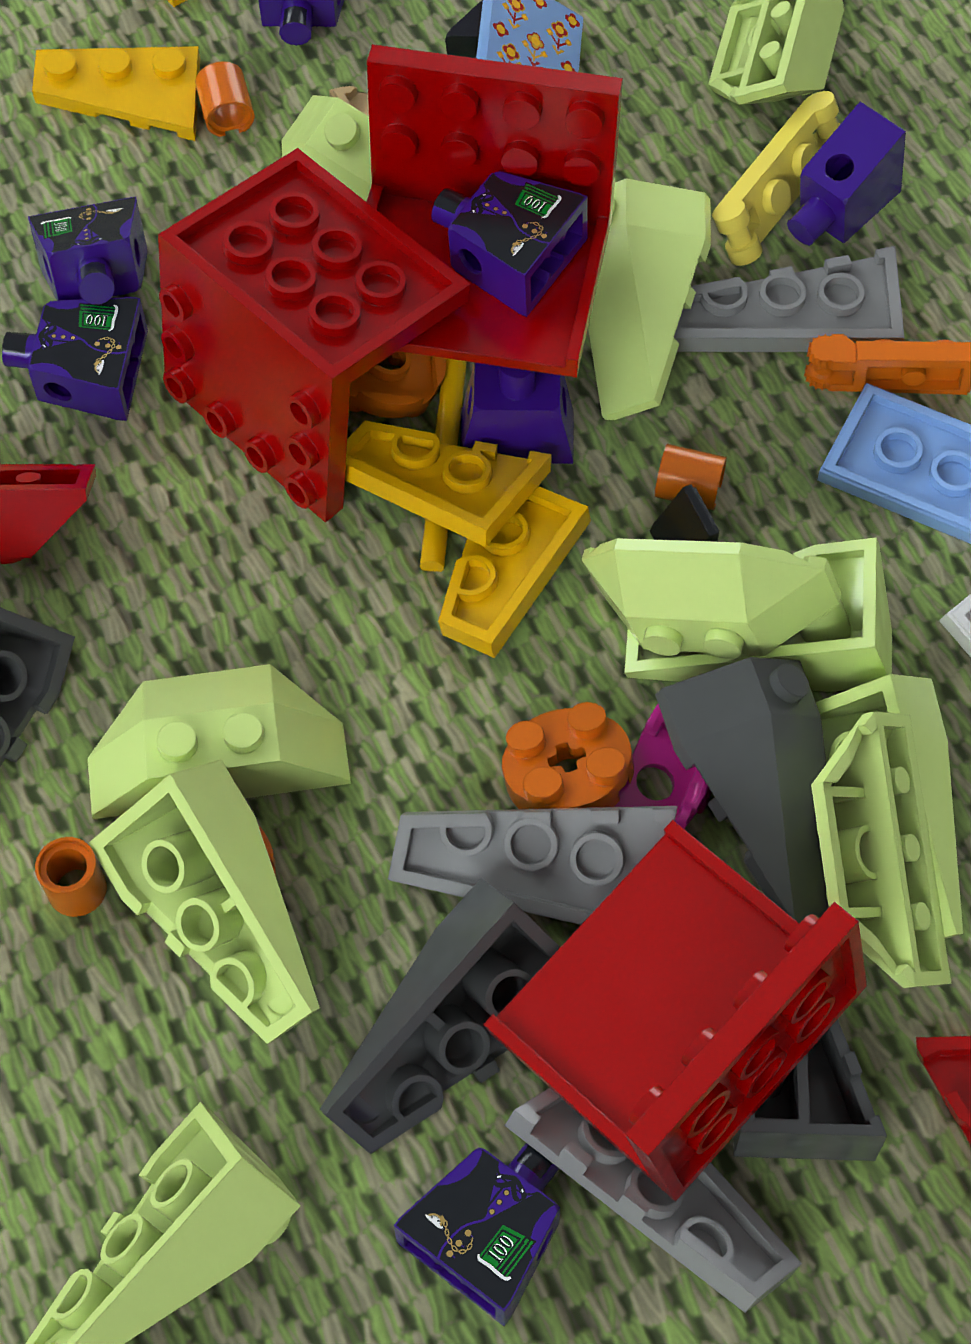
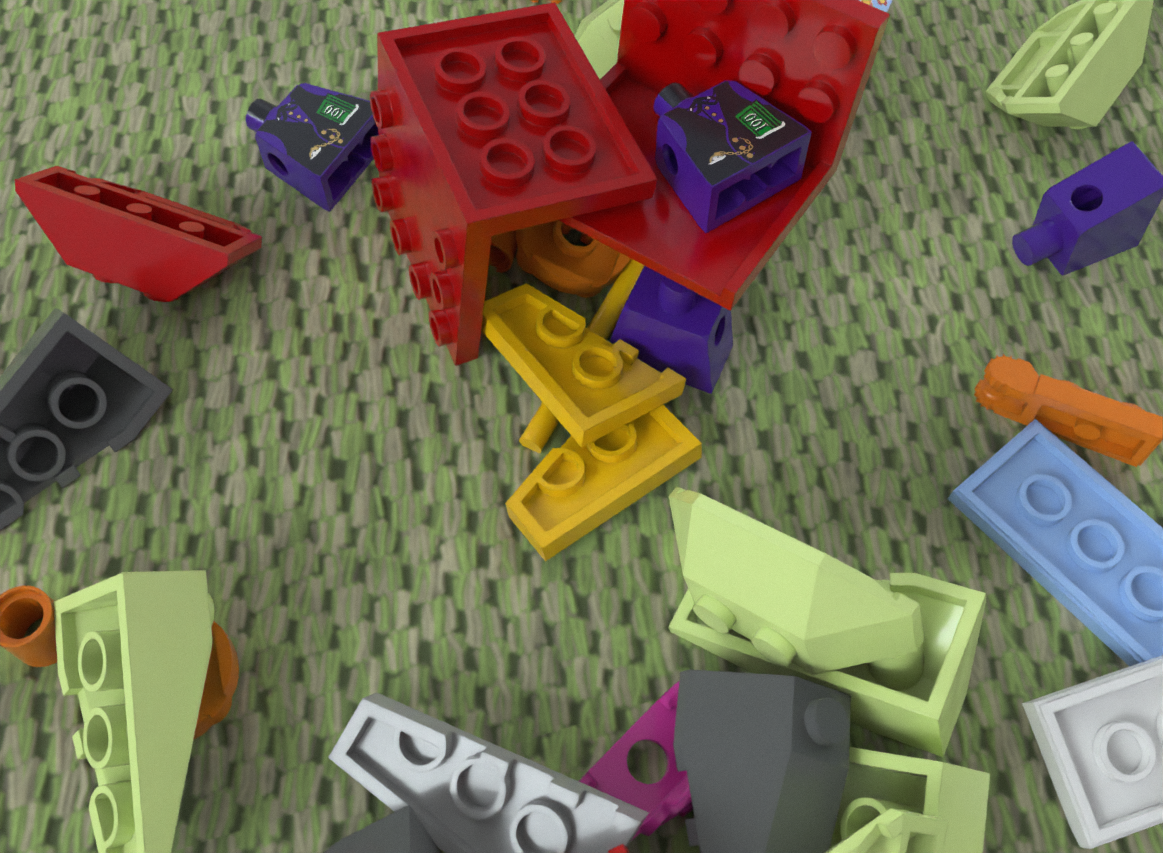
camera: 20 degrees right, 0 degrees up
(91, 250) = (348, 51): dark purple torso -> none
(247, 717) = (257, 534): yellowish green wedge -> none
(563, 734) = (565, 669): orange plate -> none
(642, 290) = (843, 249): yellowish green wedge -> none
(685, 519) = (792, 501): black slope -> none
(686, 467) = (817, 449): orange beam -> none
(774, 179) = (1014, 192): light yellow plate -> none
(794, 308) = (984, 319): light grey wing -> none

